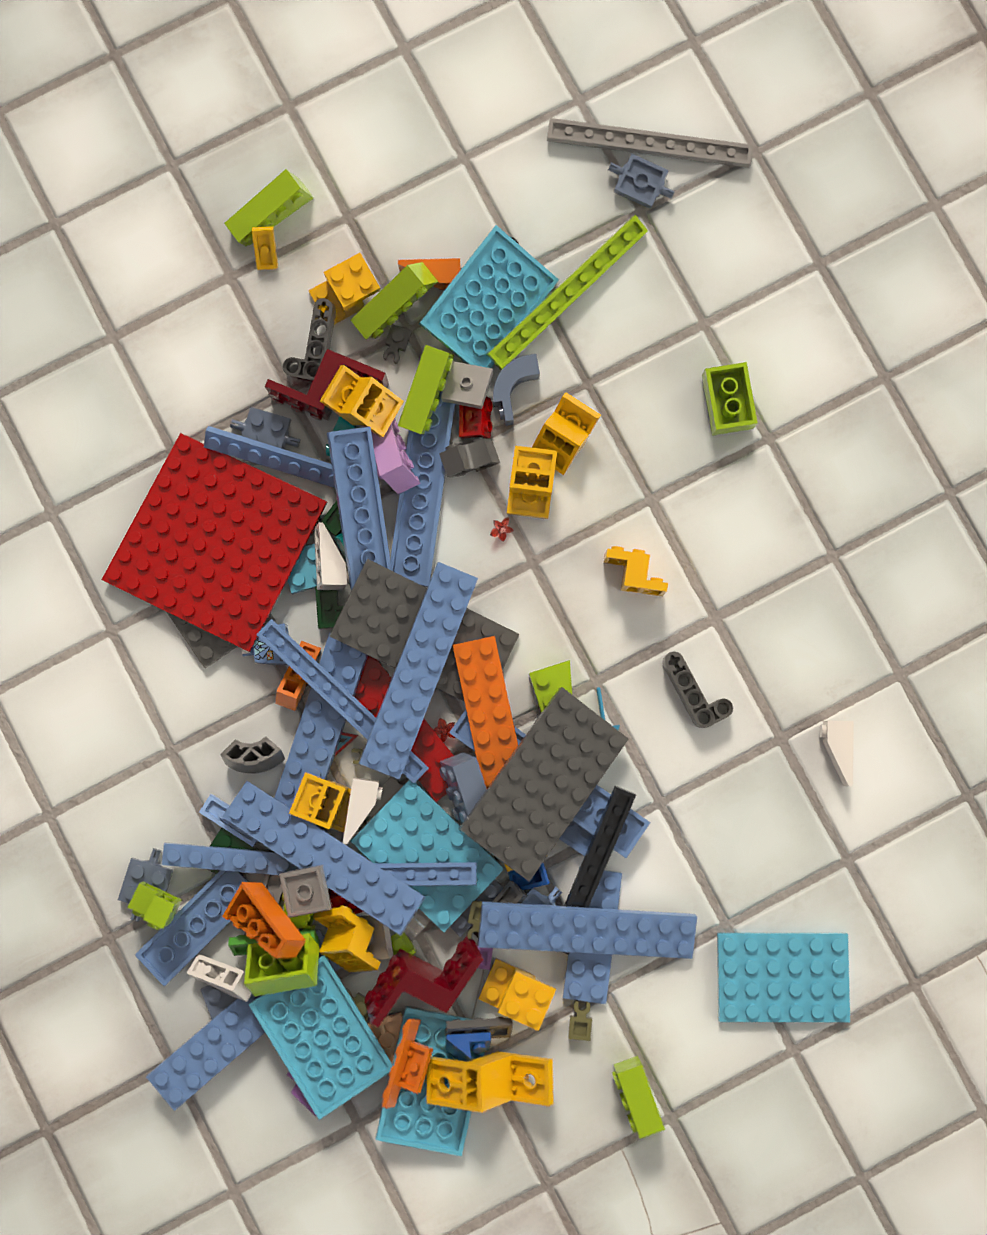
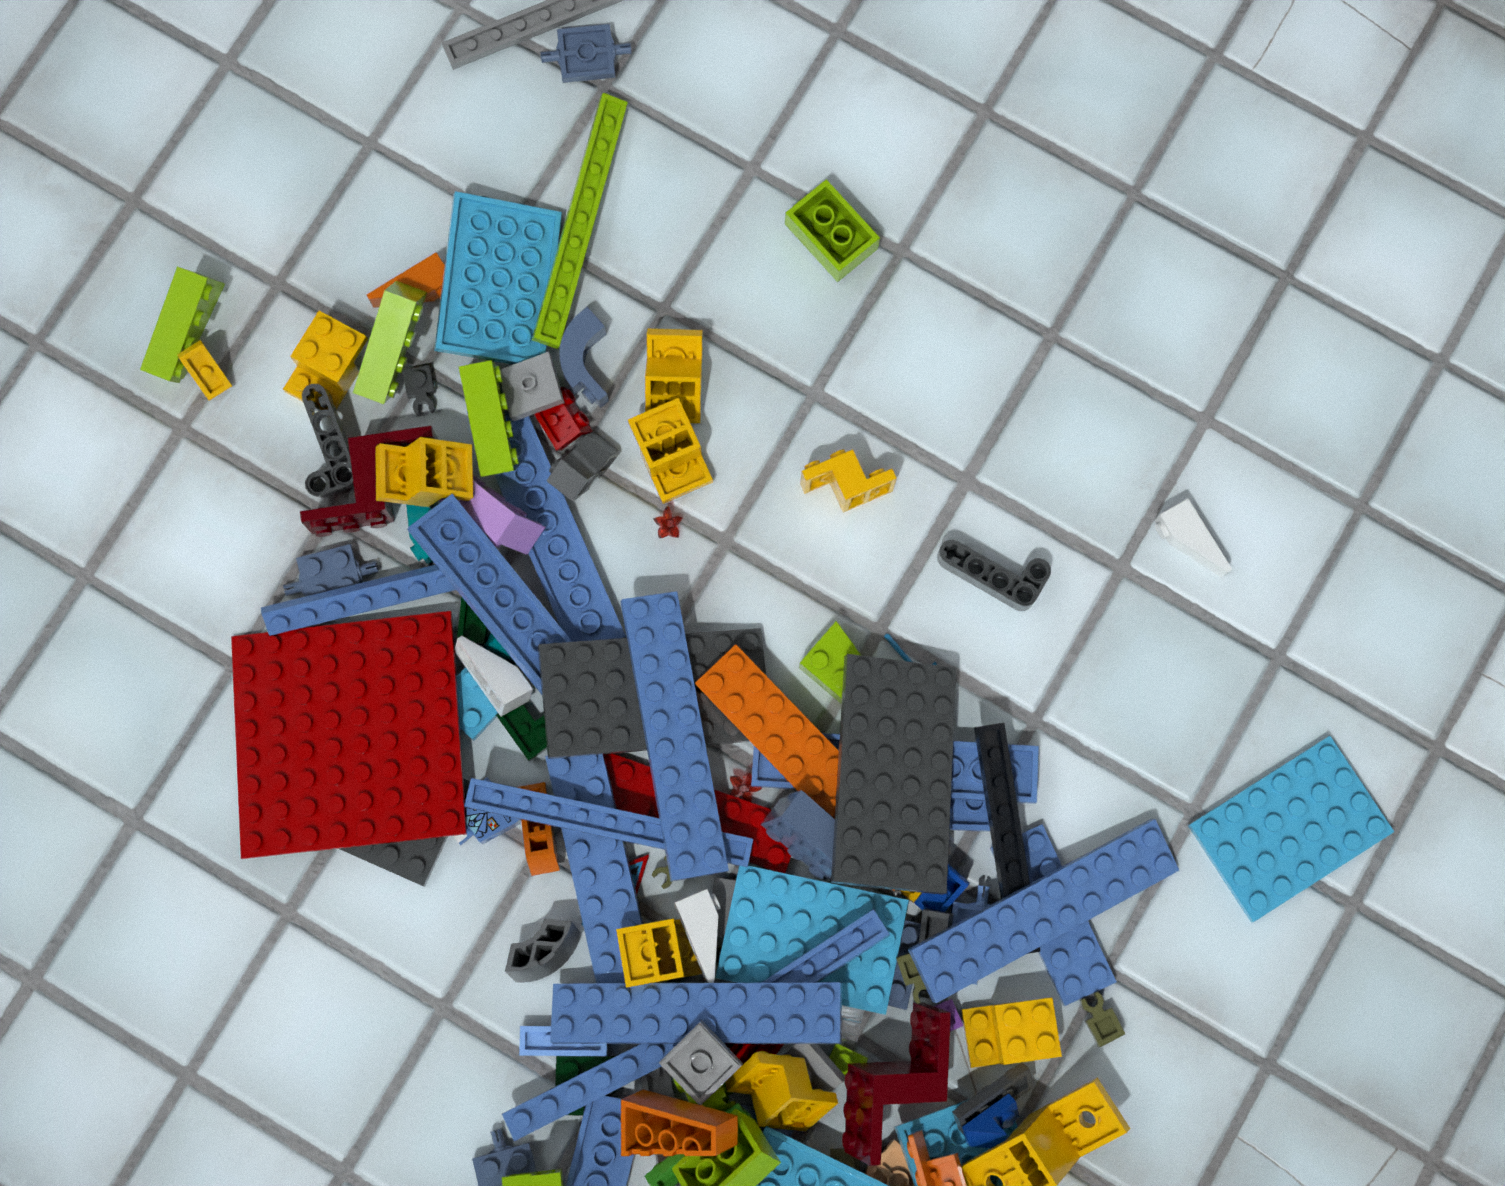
camera: 35 degrees left, 5 degrees down
(637, 1097) = (1218, 1062): lime brick -> none

